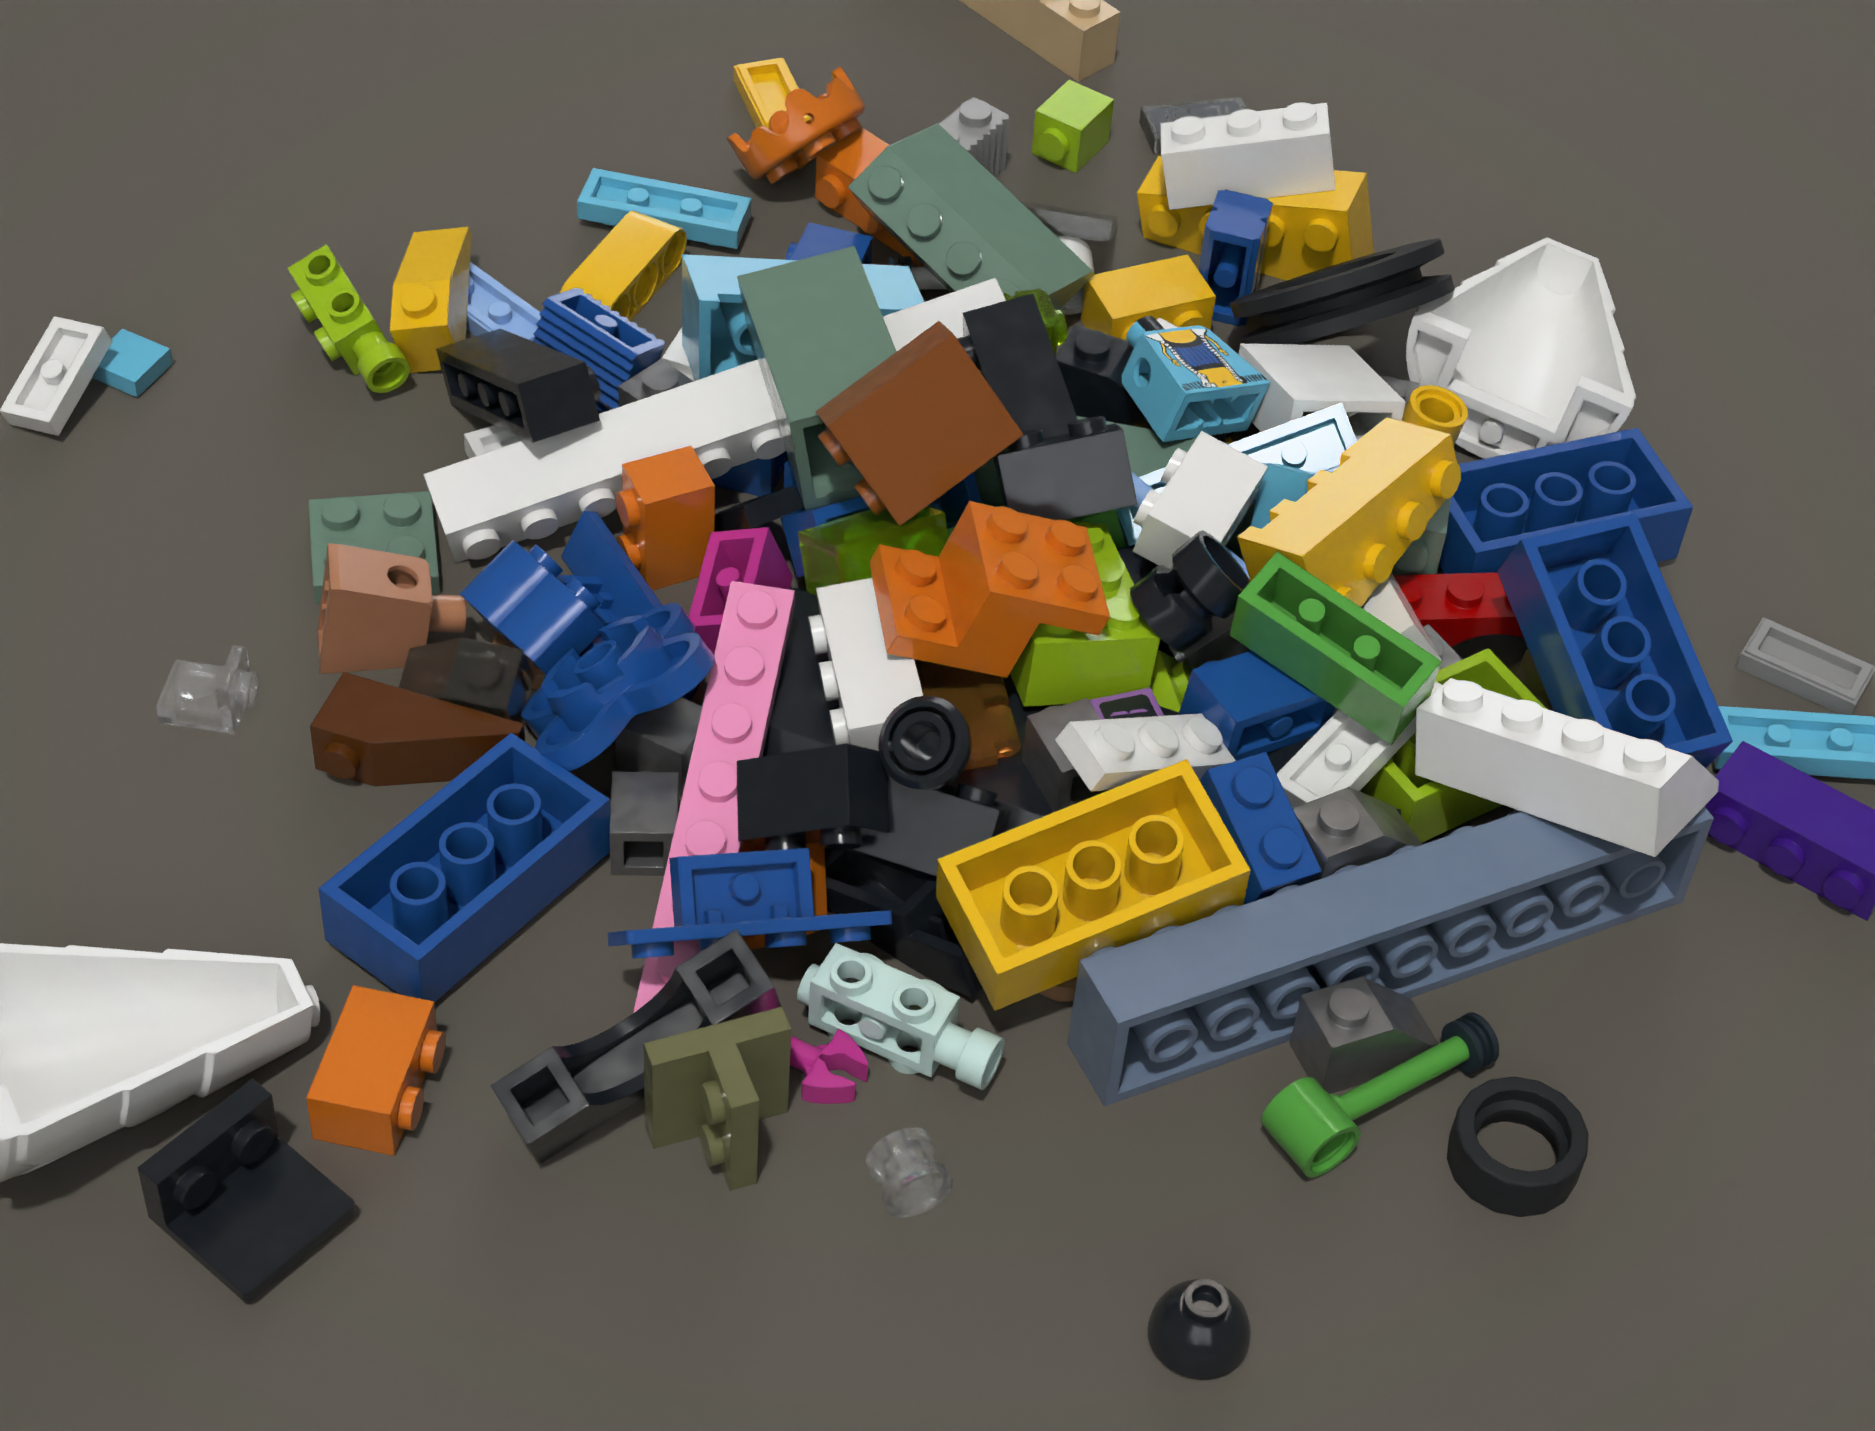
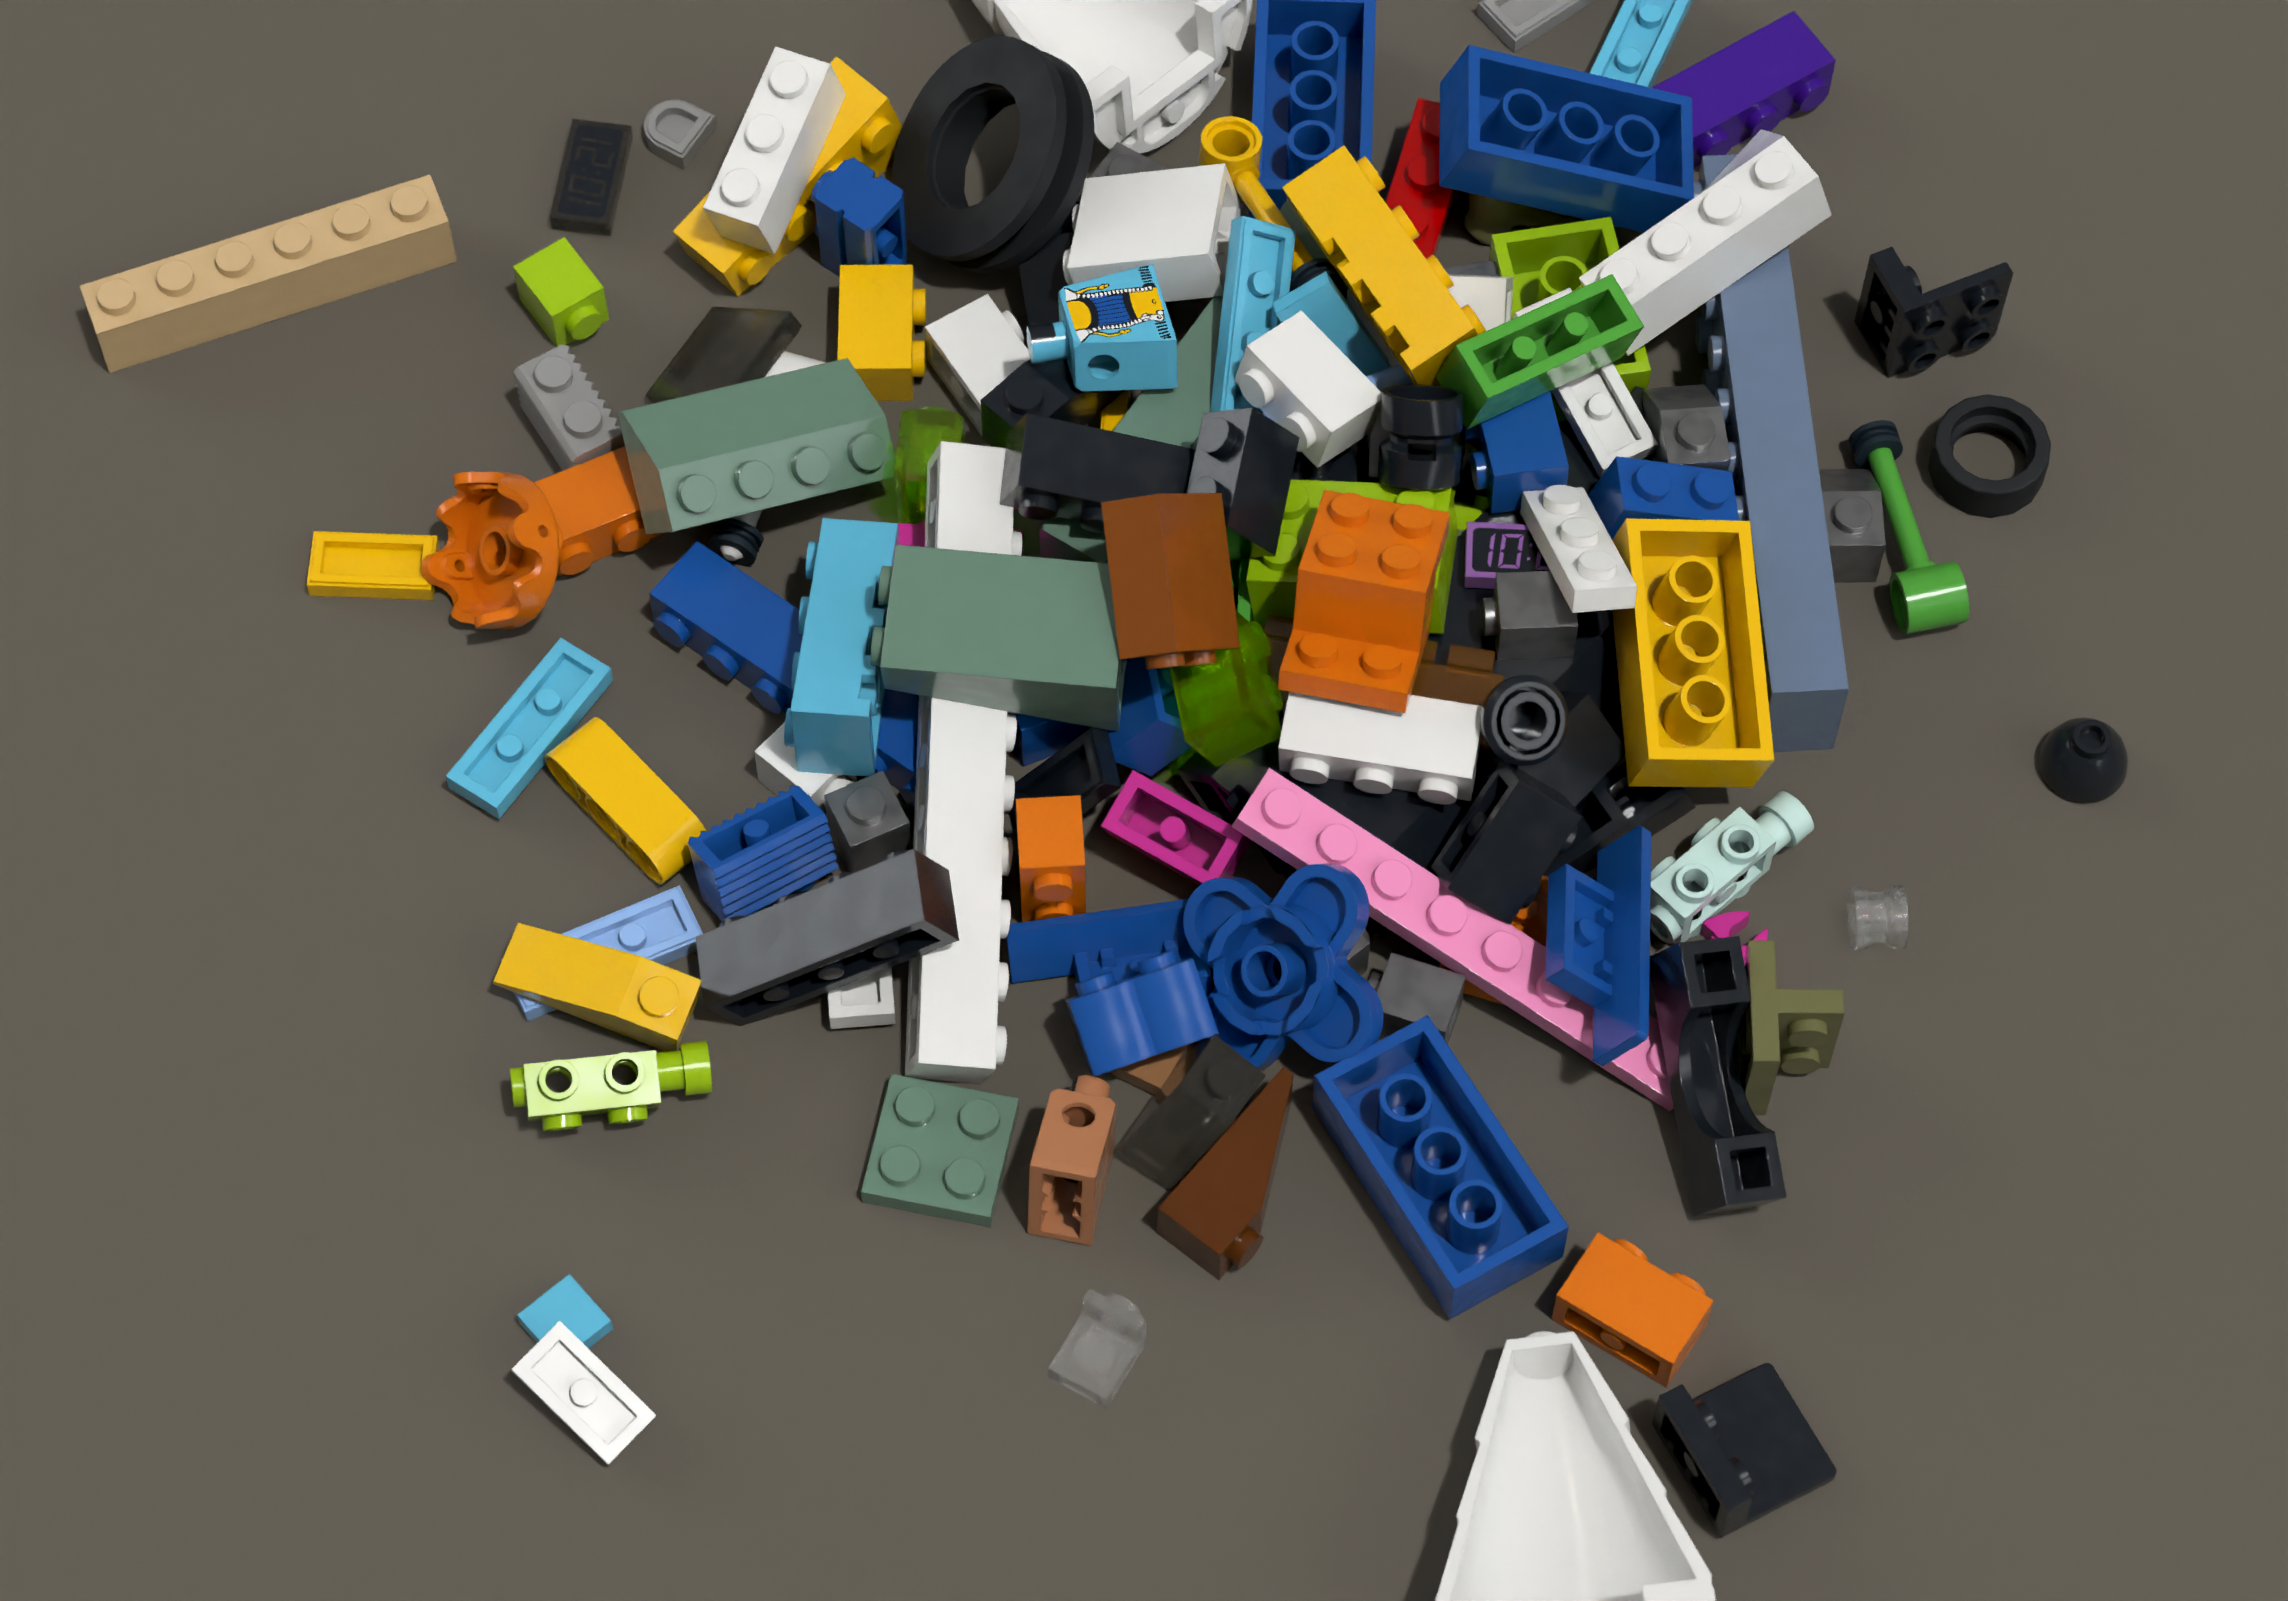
camera: 65 degrees left, 15 degrees up
(1638, 1038) = (1916, 328): none -> black bracket

